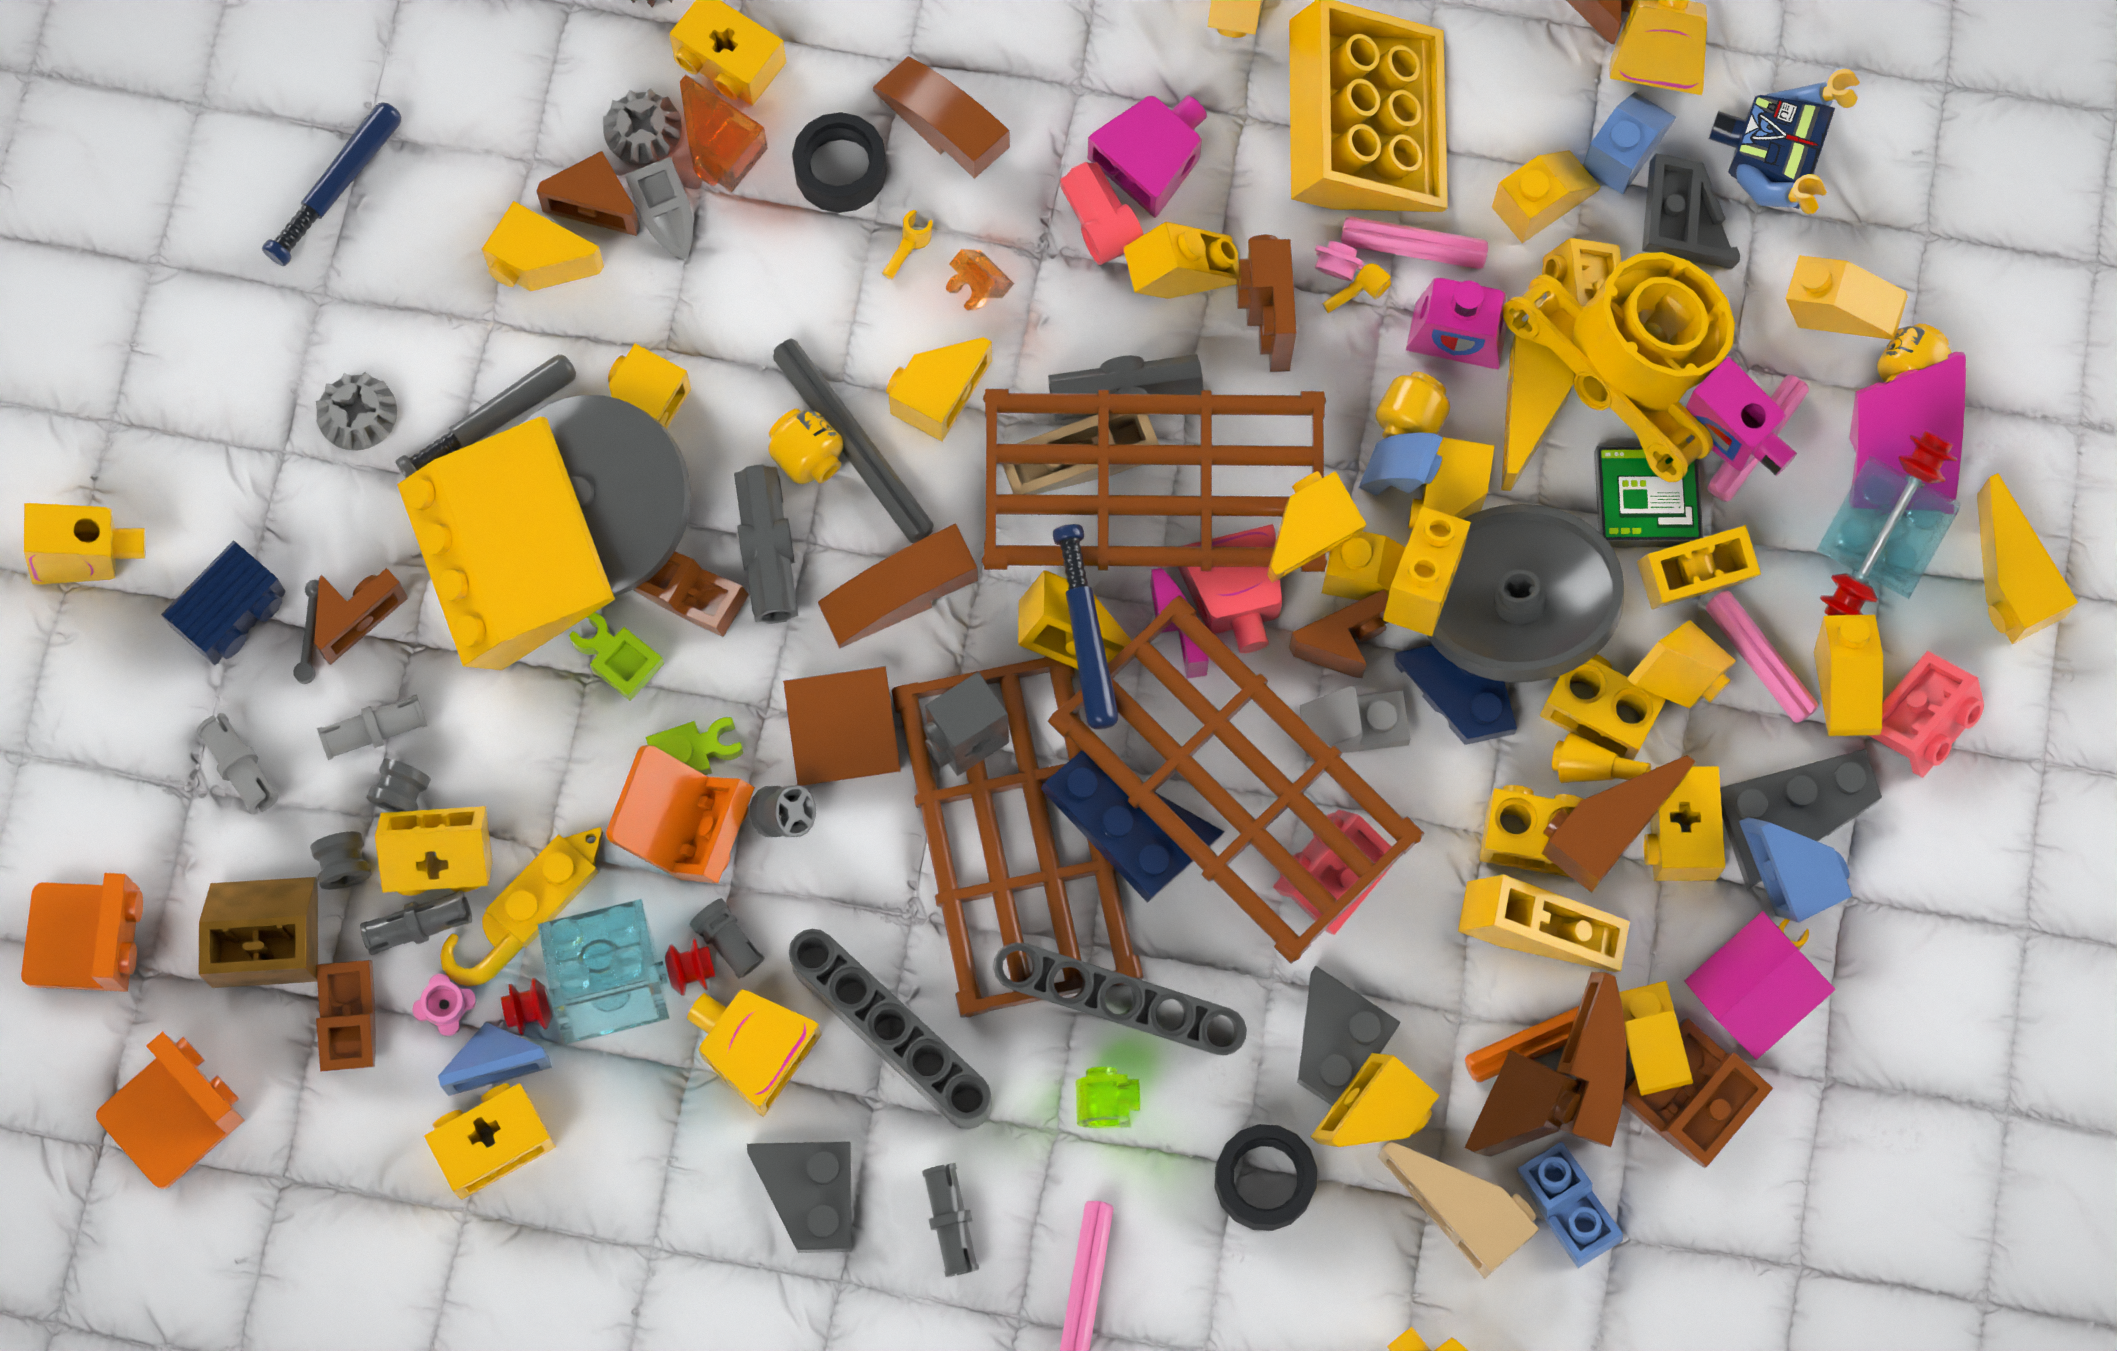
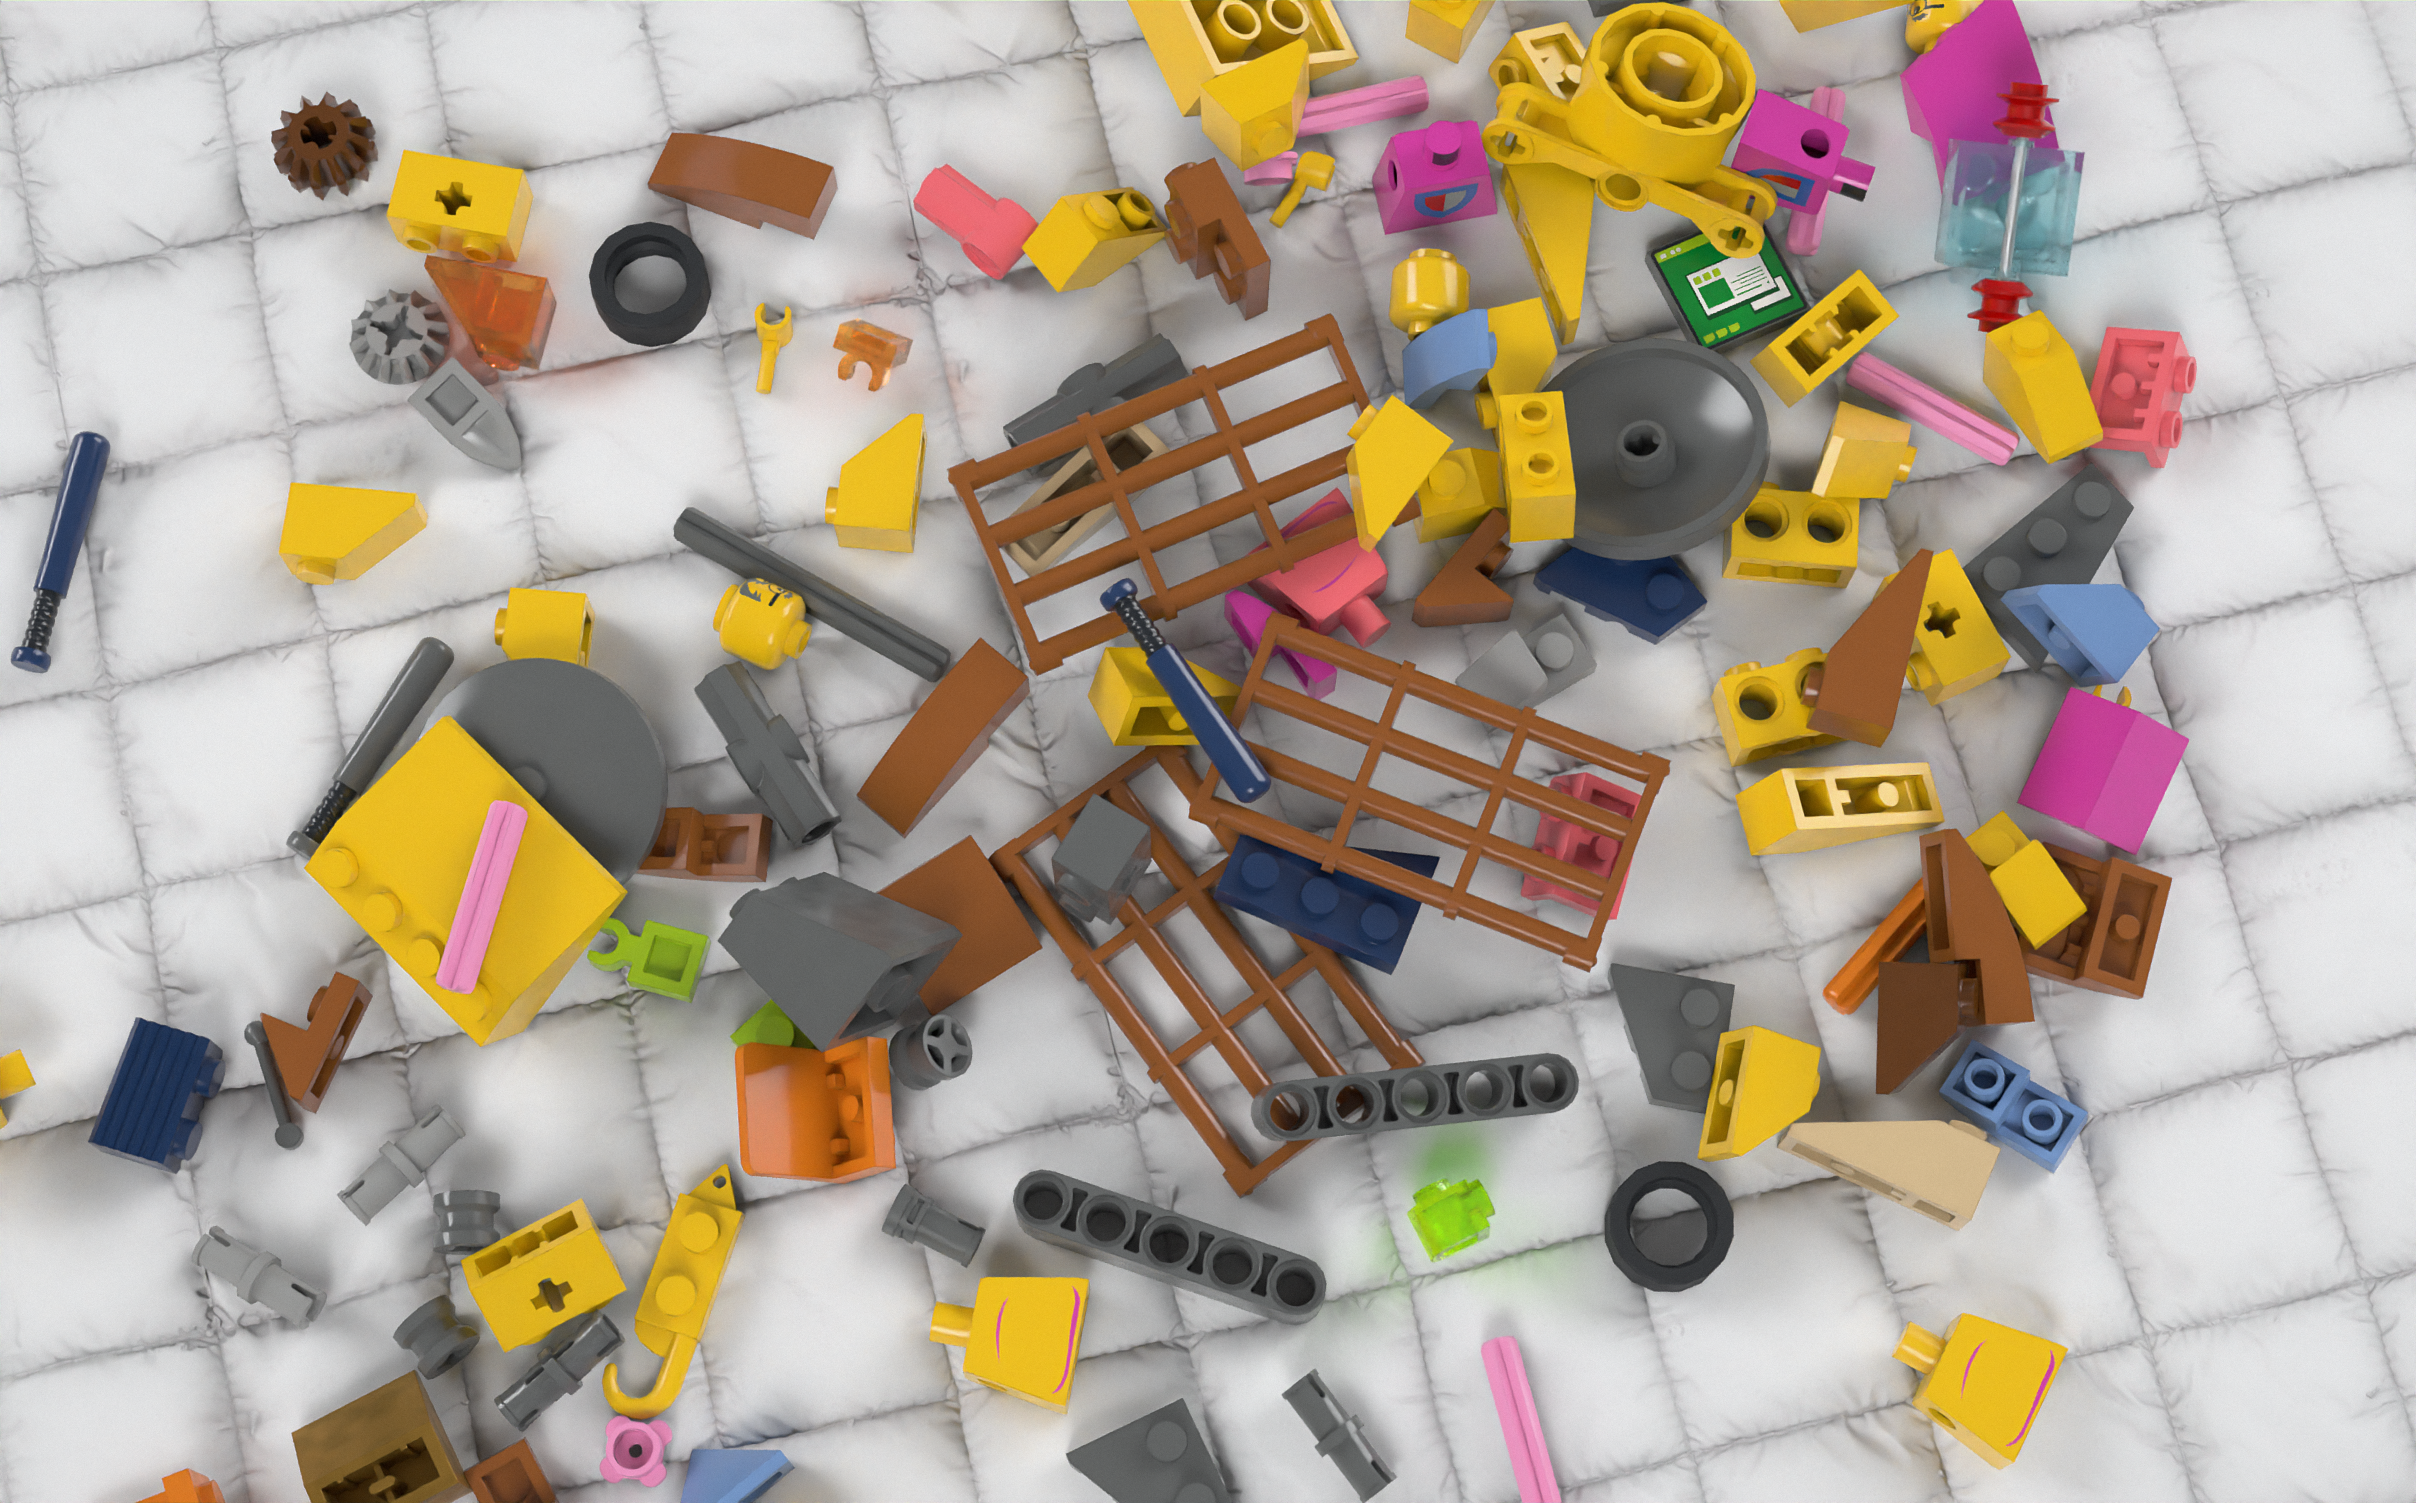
camera: 25 degrees left, 0 degrees up
(367, 428) = (235, 818): light grey gear -> none
(508, 558) = (481, 897): none -> bright pink axle
(589, 195) = (377, 439): dark orange slope -> none
(604, 975) = (812, 1333): clear light blue brick -> none
(744, 710) = (836, 954): none -> dark grey slope
(1149, 149) = (998, 126): dark pink torso -> none
(1348, 213) = (1257, 106): none -> yellow slope
(1585, 761) = (1804, 604): yellow cone -> none
(2019, 575) = (2161, 200): yellow slope -> none

